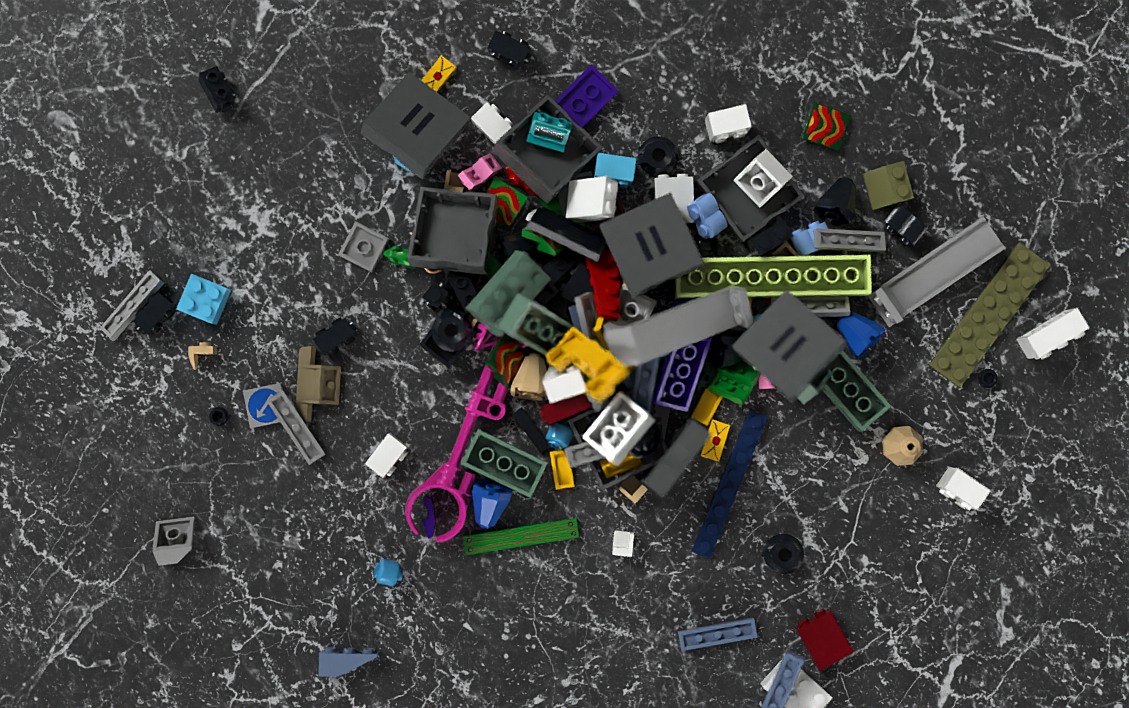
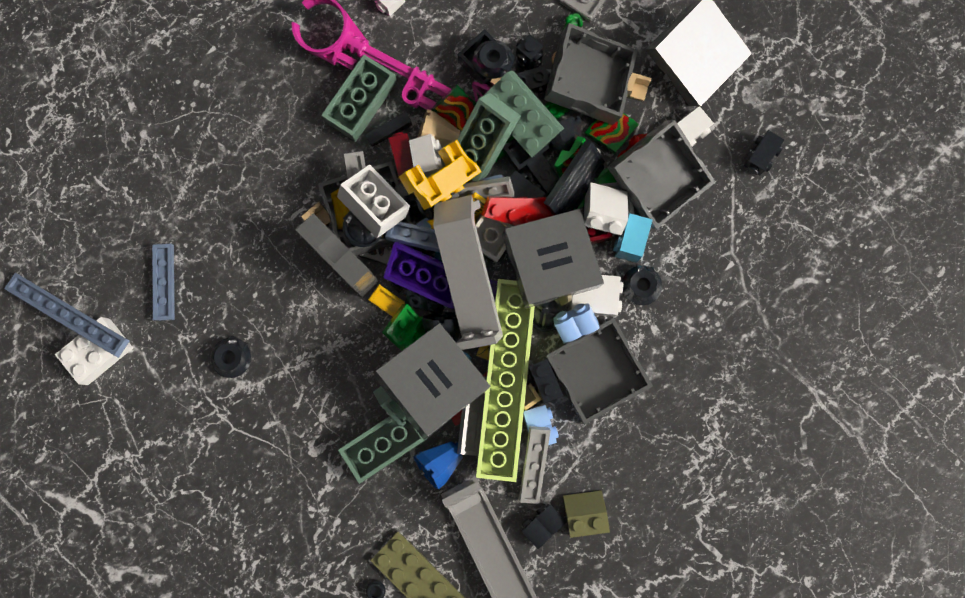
camera: 100 degrees right, 5 degrees down
(430, 522) = (312, 24): dark purple slope -> none
(439, 73) = (744, 84): yellow tile -> none
(480, 172) = (643, 109): bright pink brick -> none
(489, 501) = (324, 78): blue cone -> none
(520, 536) = (288, 108): green tile -> none
(548, 131) = (678, 177): teal window -> none
(559, 435) = (379, 154): dark azure head -> none
(561, 470) = (336, 152): yellow tile -> none
(586, 96) = (708, 222): dark purple plate -> none
(623, 543) = (265, 203): white panel -> none
(714, 445) = (353, 305): yellow tile -> none
(728, 123) = (667, 356): white brick -> none
(729, 484) = (308, 314): dark blue plate -> none
(762, 178) = (608, 383): white brick -> none
(823, 638) = (140, 385): dark red brick -> none
(825, 126) = (653, 458): slope -> none
(838, 203) = (575, 459): black cone -> none
(902, 445) = (327, 490): tan cone -> none
(963, 488) = (265, 547): white brick -> none

